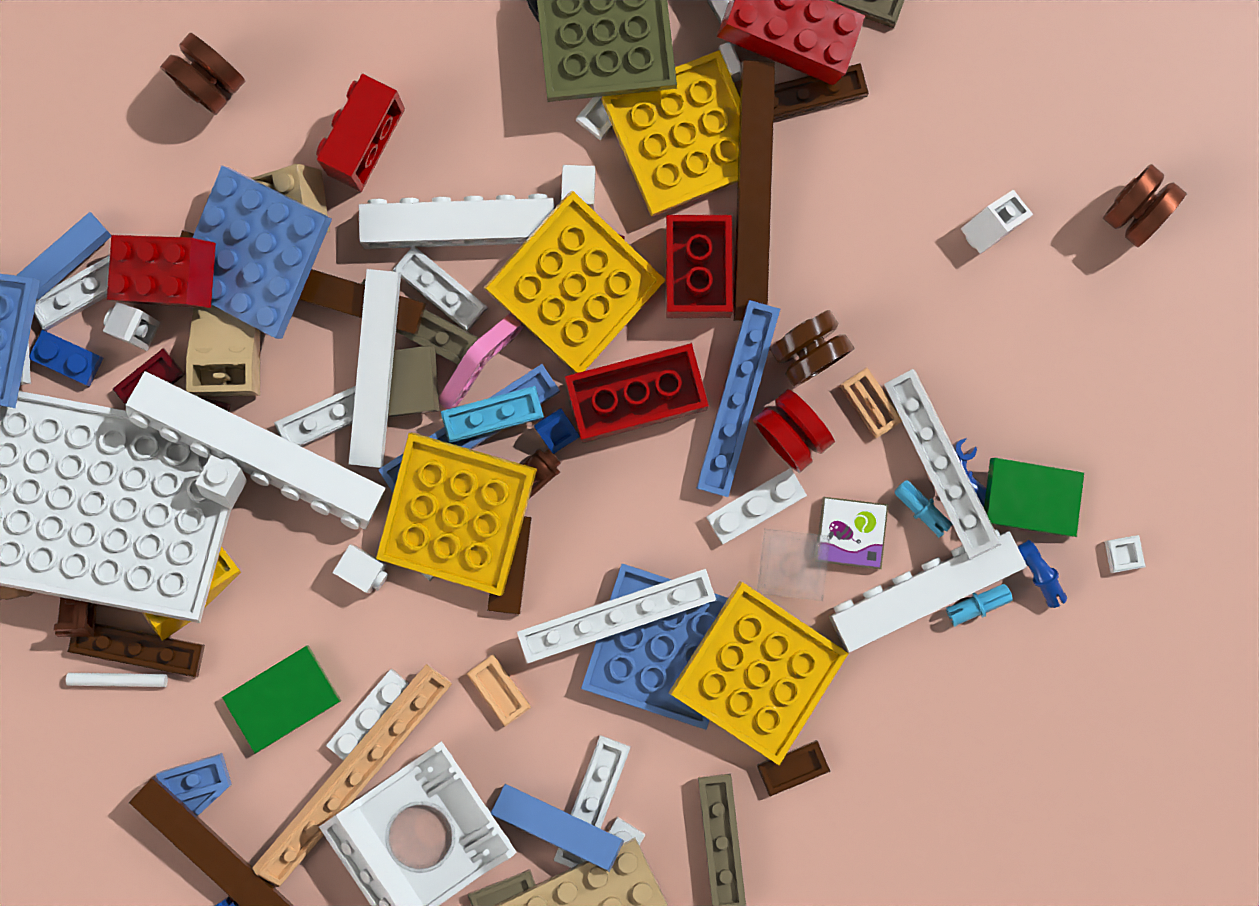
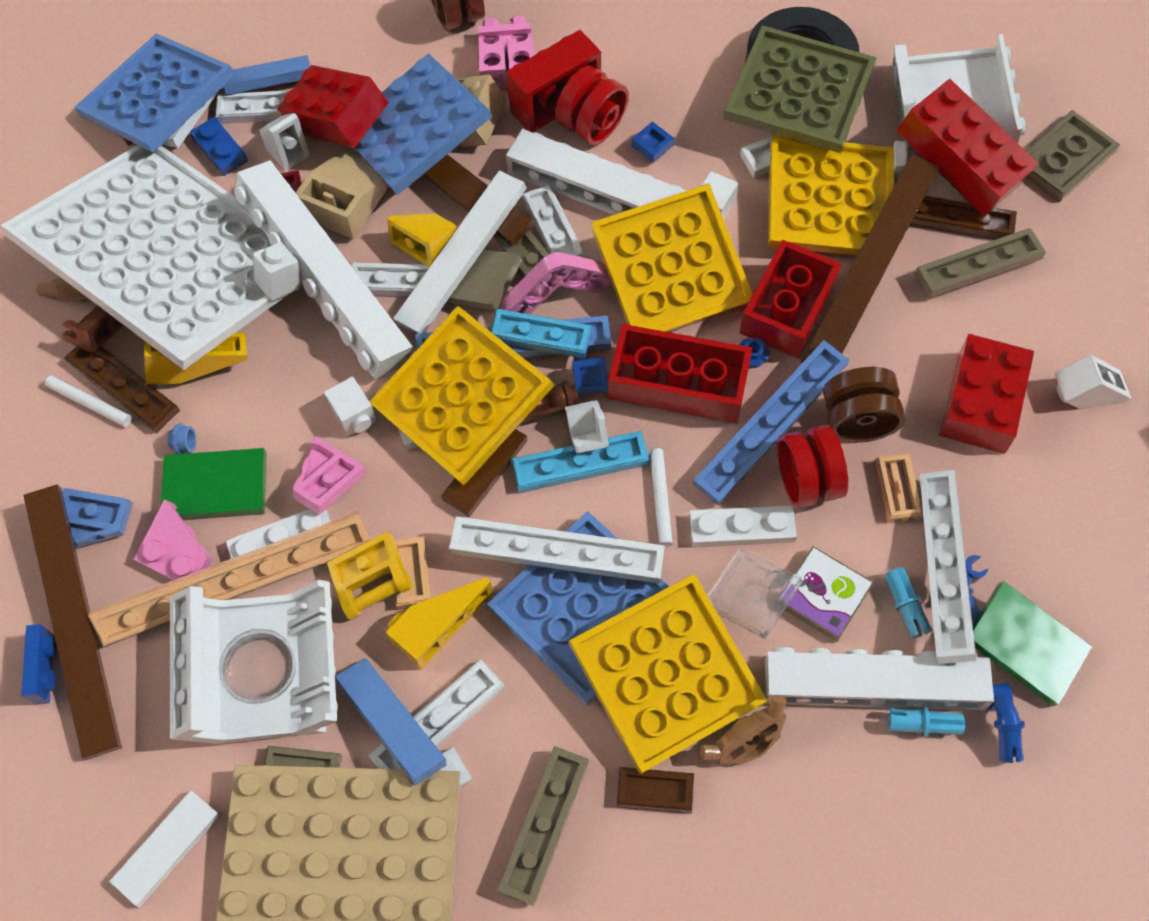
camera: 30 degrees right, 20 degrees down
(228, 674) = (182, 439): none -> medium blue plate
(284, 105) = (501, 44): none -> bright pink hips
(284, 775) = (172, 545): none -> bright pink wing
(328, 365) = (420, 235): none -> yellow slope
(377, 645) = (325, 476): none -> bright pink wing
(412, 144) = (591, 105): none -> red wheel
(459, 708) = (362, 567): none -> yellow plate
(487, 149) = (652, 142): none -> blue plate
(542, 732) = (433, 622): none -> yellow slope
(581, 486) = (587, 426): none -> white panel
(588, 515) = (566, 465): none -> medium azure tile
(674, 514) = (661, 497): none -> white bar
(691, 324) = (762, 353): none -> blue plate
(846, 691) = (749, 736): none -> medium nougat piece
(849, 138) = (980, 262): none -> dark tan plate
(910, 277) = (987, 393): none -> red brick
(1124, 554) = (1104, 748): white tile -> none

